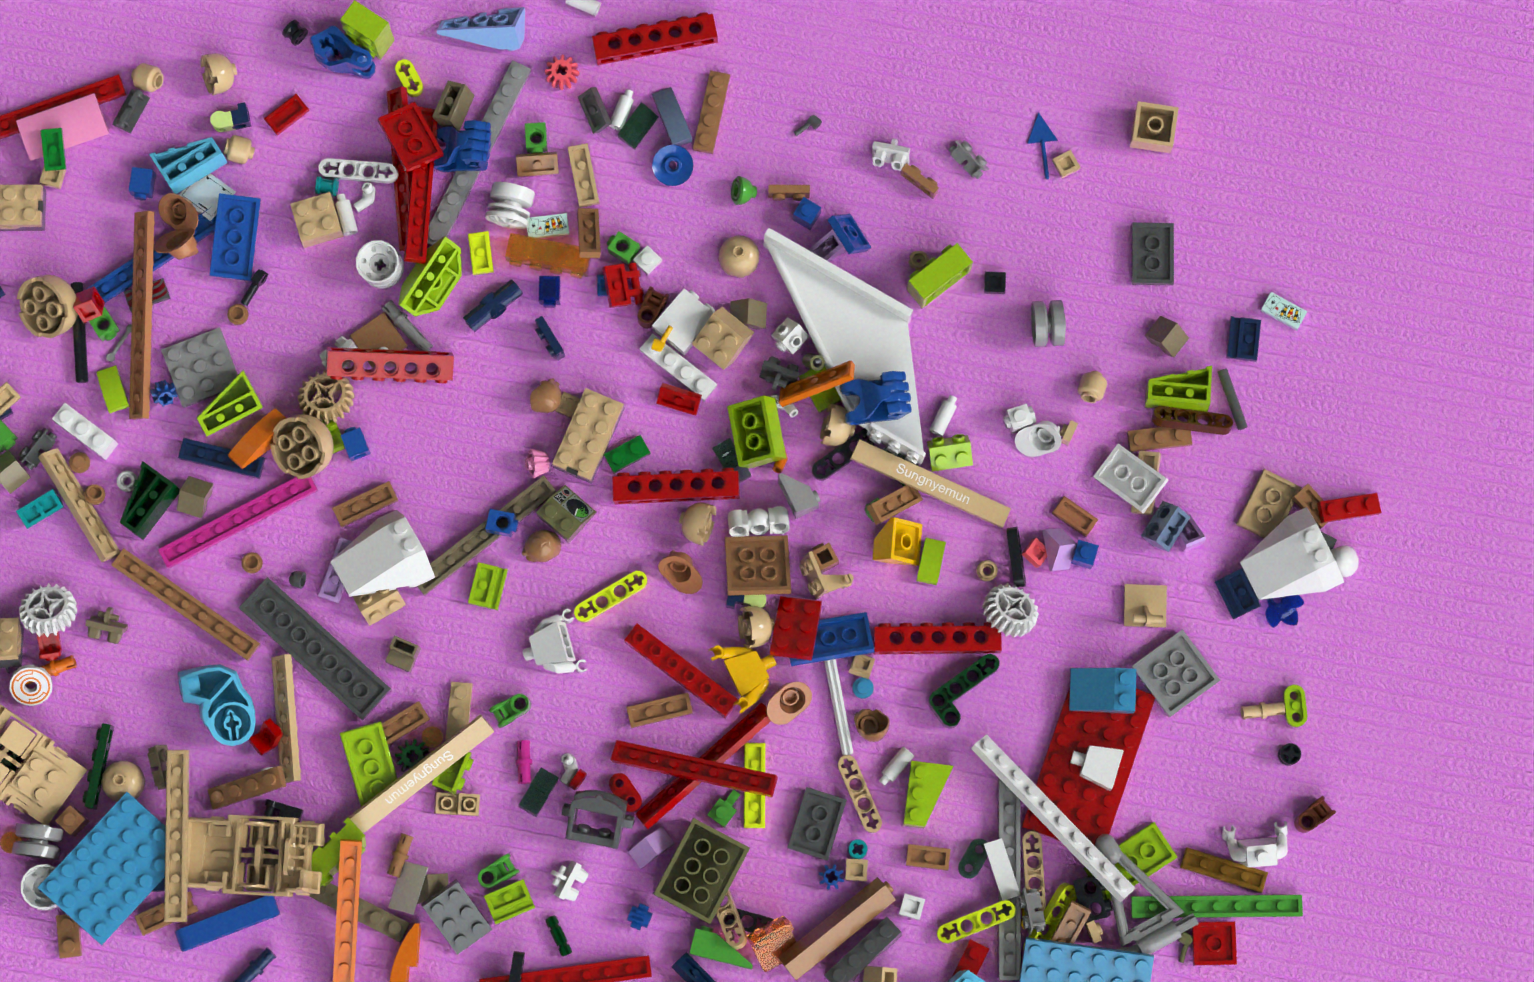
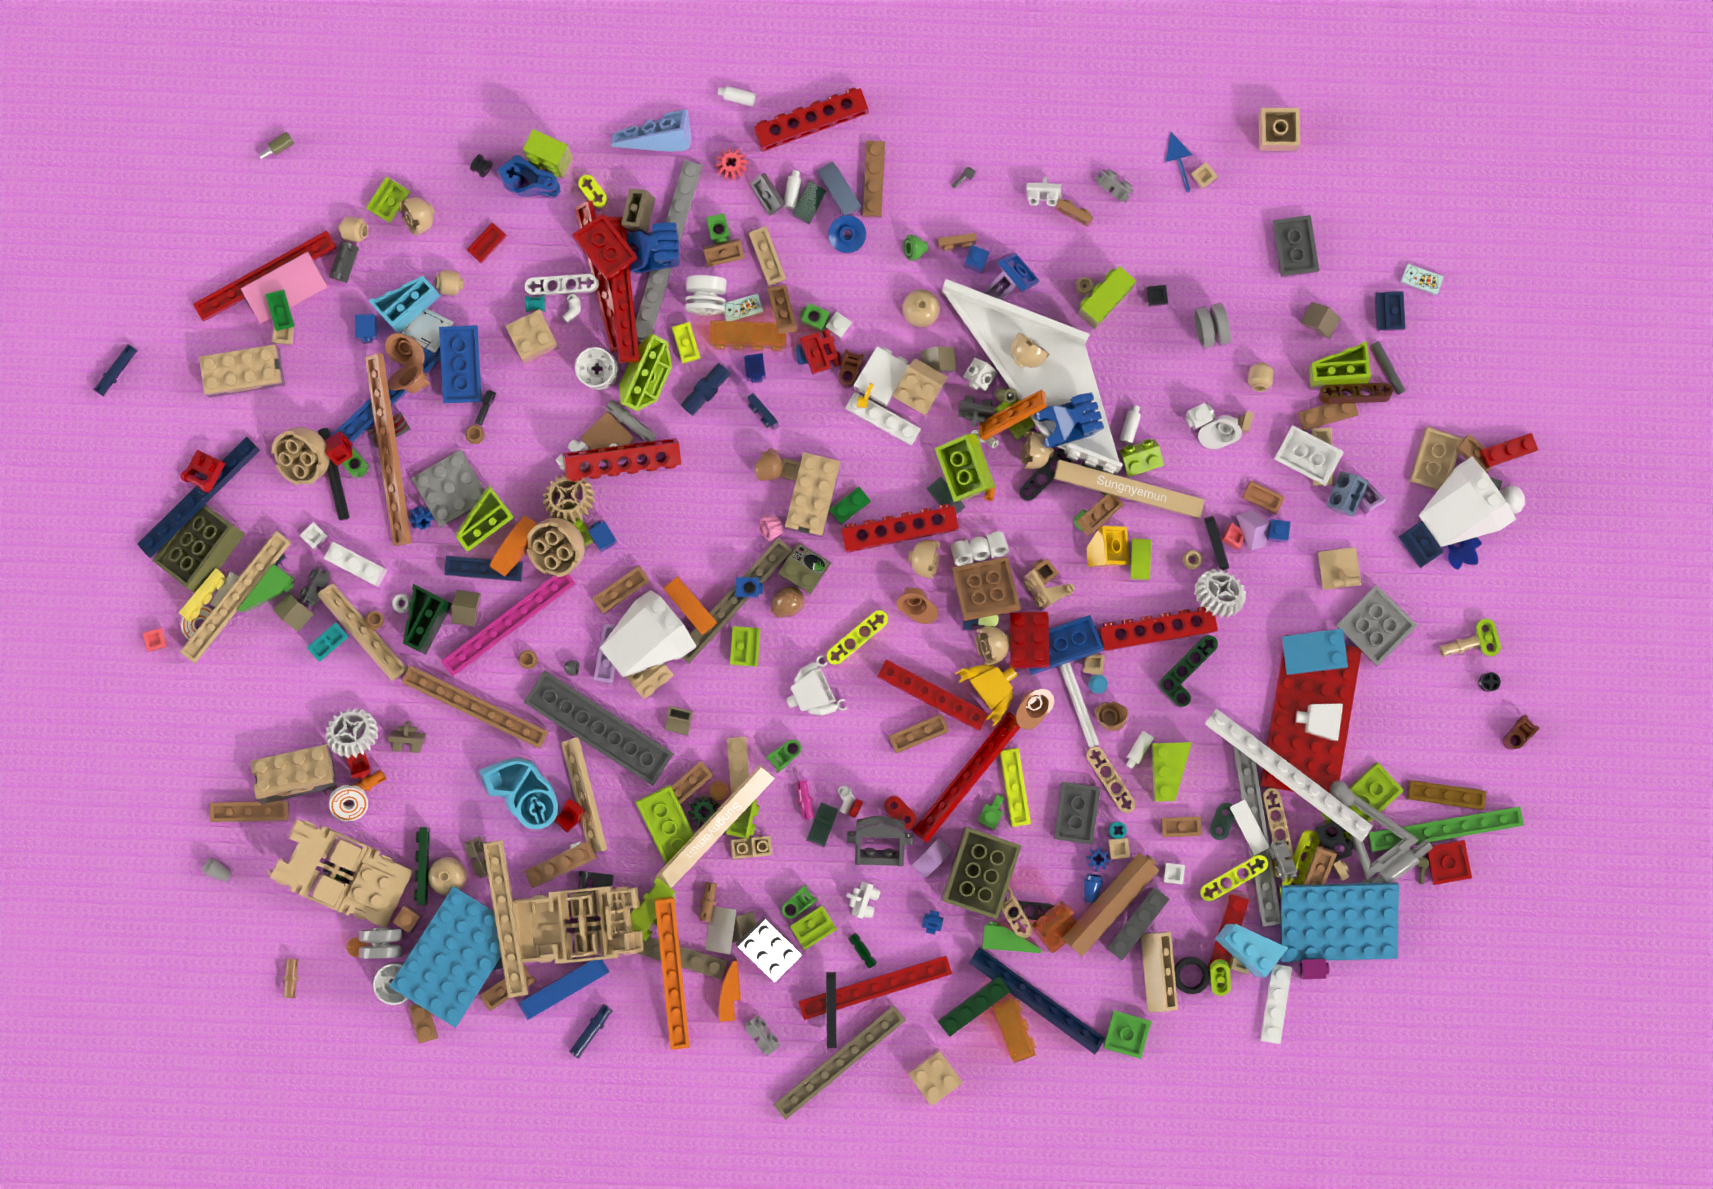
camera: 10 degrees left, 5 degrees up
(46, 394) = (314, 535): none -> white plate
(79, 462) = (355, 593): medium nougat plate -> none
(111, 356) = (366, 492): light grey hinge -> none
(112, 389) = (373, 521): lime slope -> none
(188, 53) = (387, 199): none -> lime plate
(232, 119) = (437, 256): leg -> none
(346, 215) = (557, 327): white cylinder -> none
(435, 532) = (690, 605): none -> orange slope
(679, 399) = (889, 448): red plate -> none
(694, 768) = (960, 782): red plate -> none
(798, 495) = (1011, 519): light grey slope -> none
(820, 906) = (1092, 886): none -> blue cone
(843, 318) = (1027, 352): none -> tan cylinder
(1257, 851) = (1474, 774): white torso -> none

